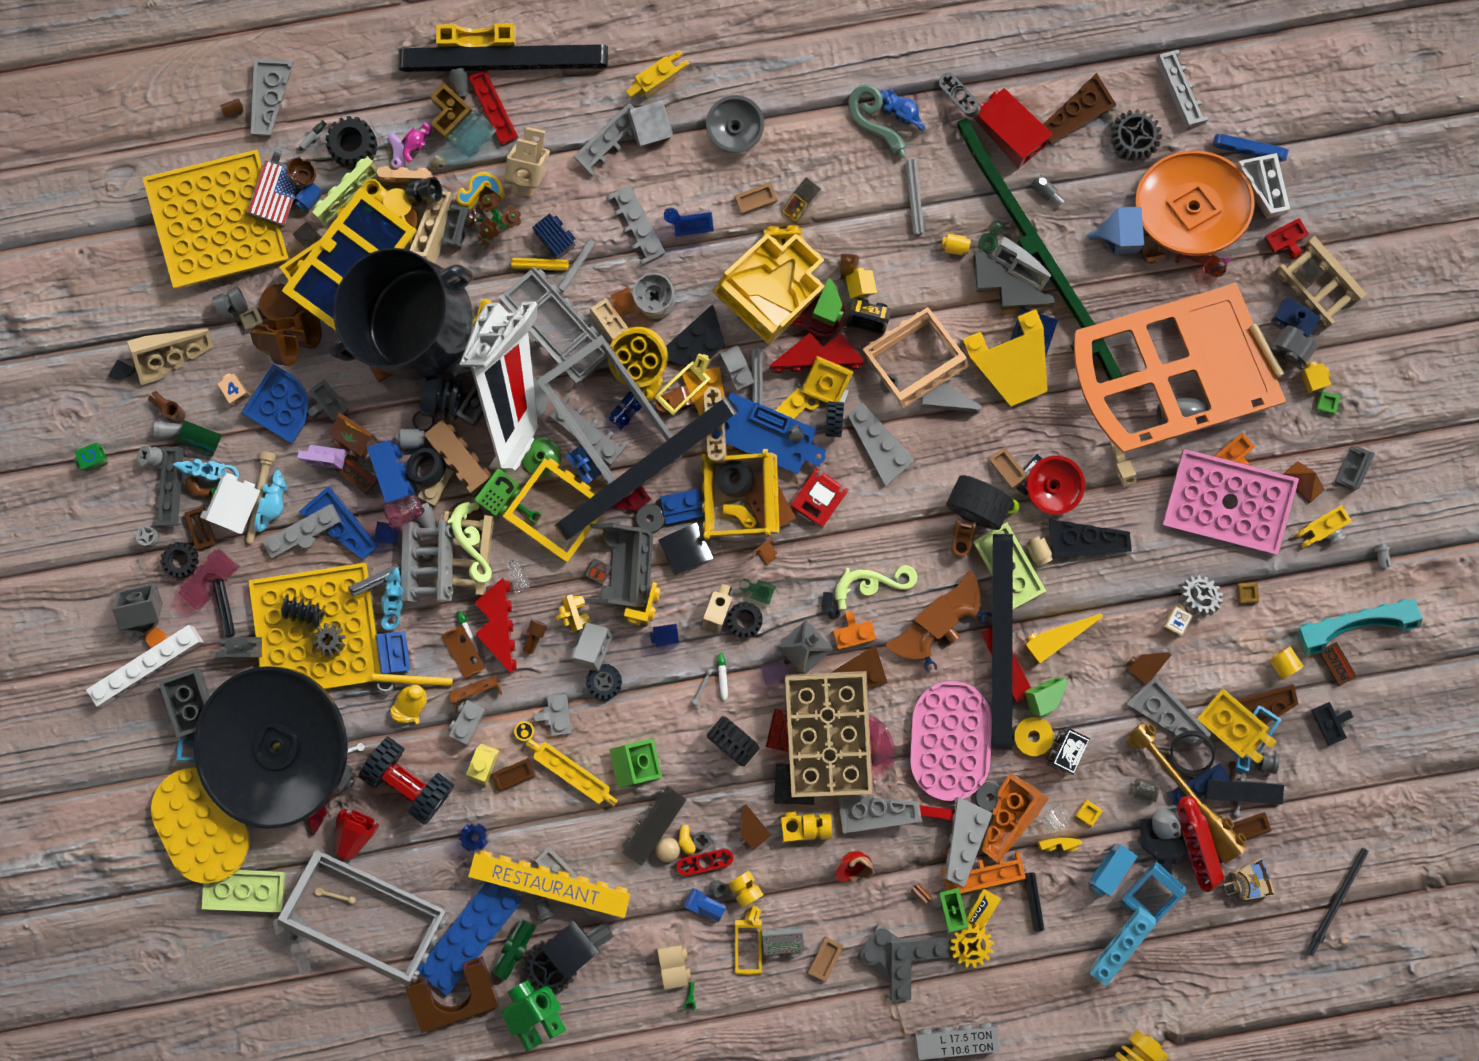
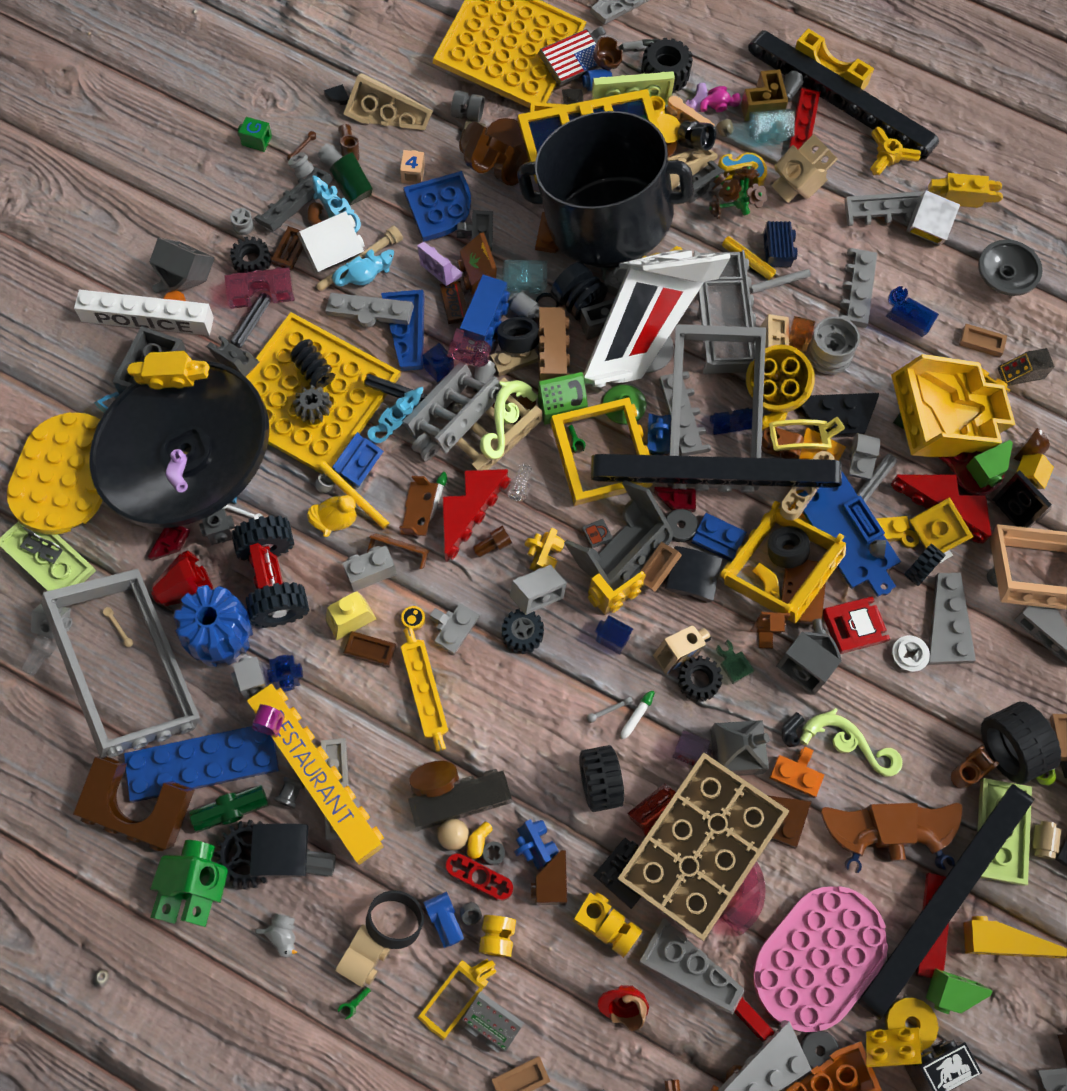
camera: 35 degrees right, 15 degrees down
(133, 453) = (311, 136): none -> reddish brown hinge
(216, 703) = (168, 370): none -> yellow hinge
(233, 888) = (41, 548): none -> dark grey piece
(290, 771) = (175, 470): none -> lavender arm
(389, 851) = (213, 626): none -> blue wheel
(392, 415) = (525, 275): none -> clear light blue brick
(431, 604) = (425, 446): none -> light grey wheel
(456, 859) = (249, 676): none -> light grey brick
(495, 879) = (268, 720): none -> magenta leg
(577, 93) = (890, 152): none -> yellow bush
(612, 995) = (281, 934): none -> light grey animal
(627, 826) = (434, 778): none -> reddish brown tile
(635, 763) = (490, 727): bright green slope -> none
(658, 563) = (659, 566): none -> medium nougat tile
(670, 912) = (386, 941): none -> black tyre
(721, 816) = (532, 846): none -> blue hips
(806, 548) = (811, 658): none -> dark grey piece
(865, 480) = (911, 643): none -> white gear
(1030, 762) = (893, 1047): none -> yellow hinge

